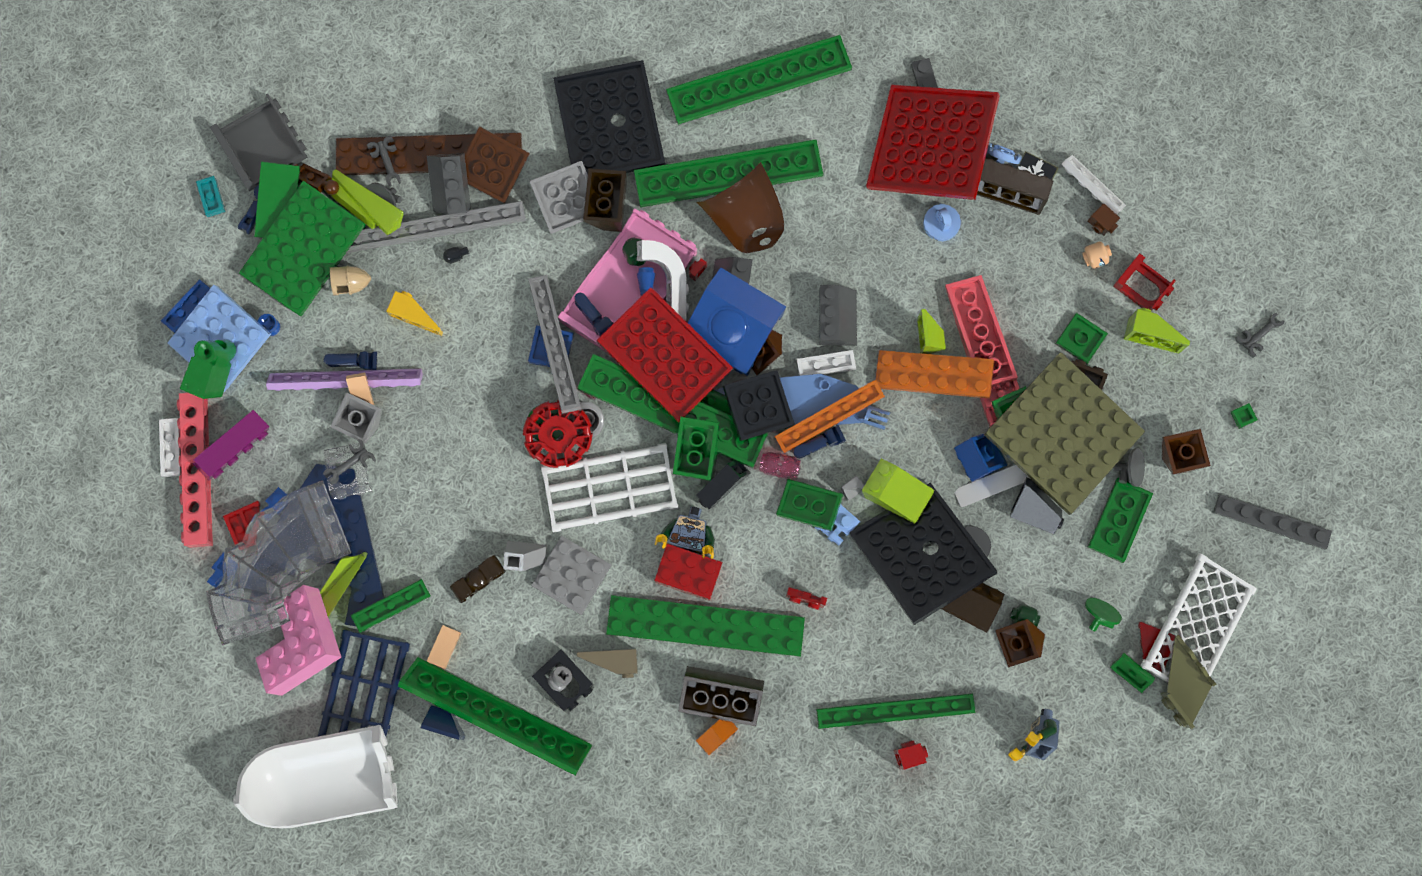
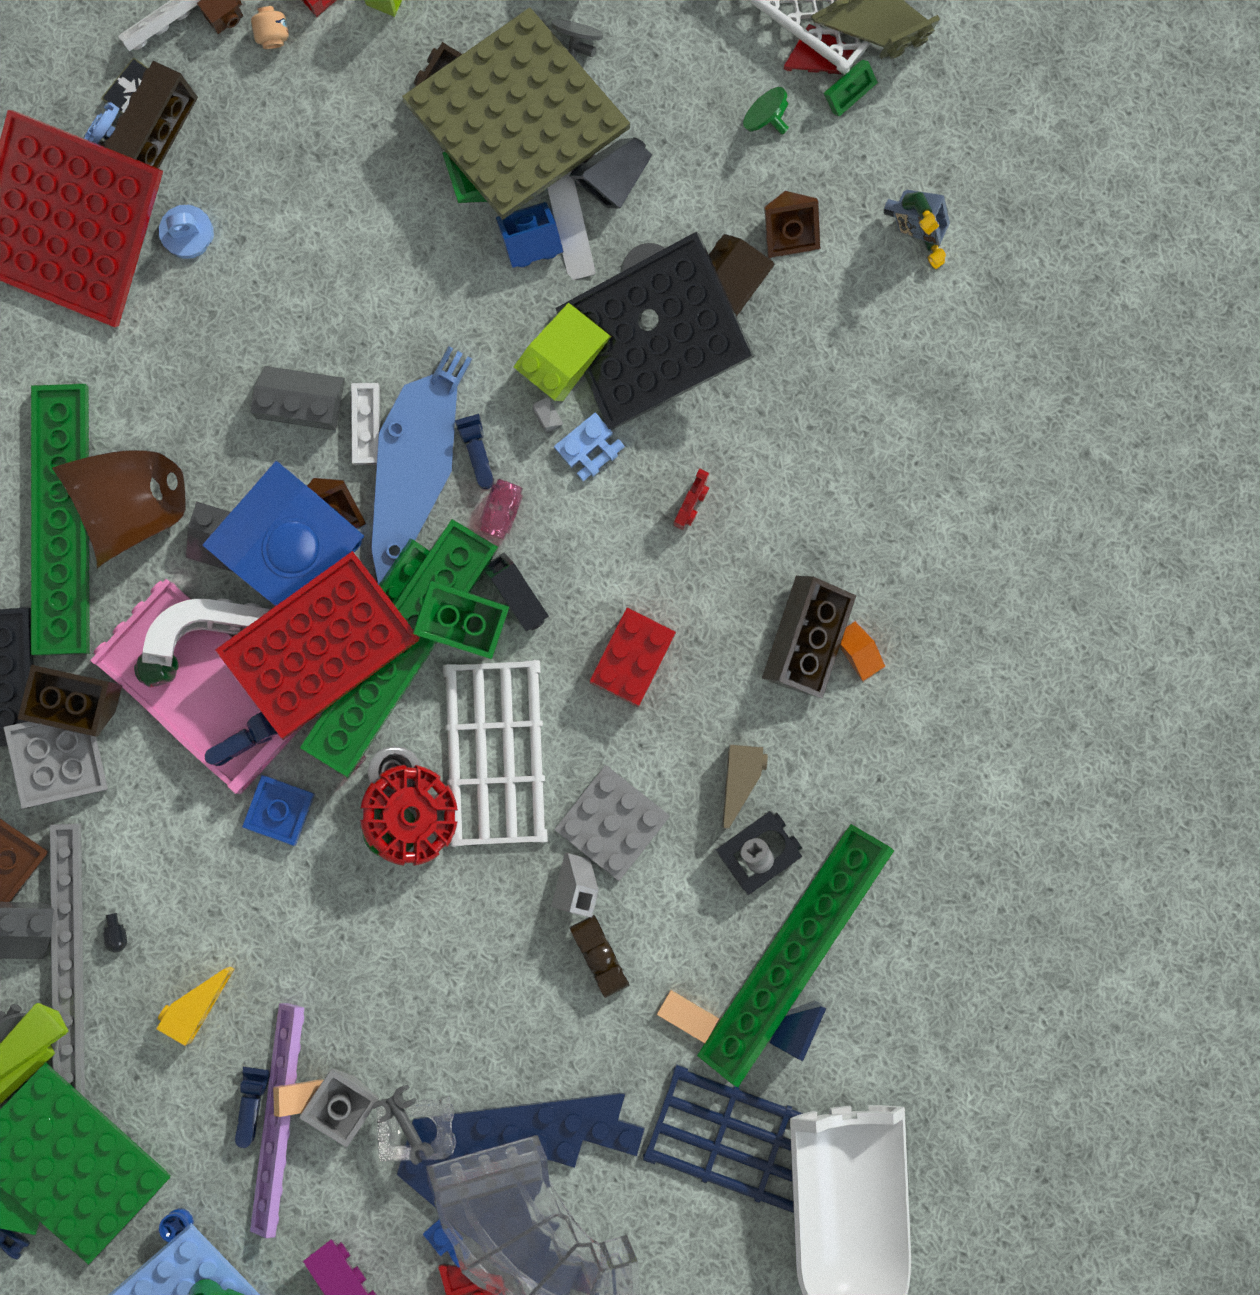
camera: 85 degrees left, 5 degrees up
(306, 647) = (660, 1213): bright pink piece -> none
(340, 580) = (591, 1170): lime wedge -> none
(348, 280) = (127, 1097): tan helmet -> none
(390, 606) = (620, 1086): green tile -> none
(554, 344) = (275, 803): light grey plate -> none
(645, 279) = (201, 658): blue cone -> none
(689, 534) = (579, 649): torso -> none
(697, 269) = (196, 584): red plate -> none
(705, 626) = (709, 646): green plate -> none
(758, 405) = (411, 525): black plate -> none
(809, 504) = (562, 477): green tile -> none
(829, 416) = (442, 428): orange plate -> none
(895, 711) = (858, 407): green tile -> none
(910, 755) = (923, 393): red brick -> none
(930, 334) = (345, 273): lime slope -> none
(934, 374) = (404, 275): orange plate -> none
(982, 336) = (371, 204): coral slope -> none
(1025, 612) = (753, 214): dark green head -> none
(1081, 338) = (384, 72): green tile -> none
(1120, 520) = (644, 67): green tile -> none

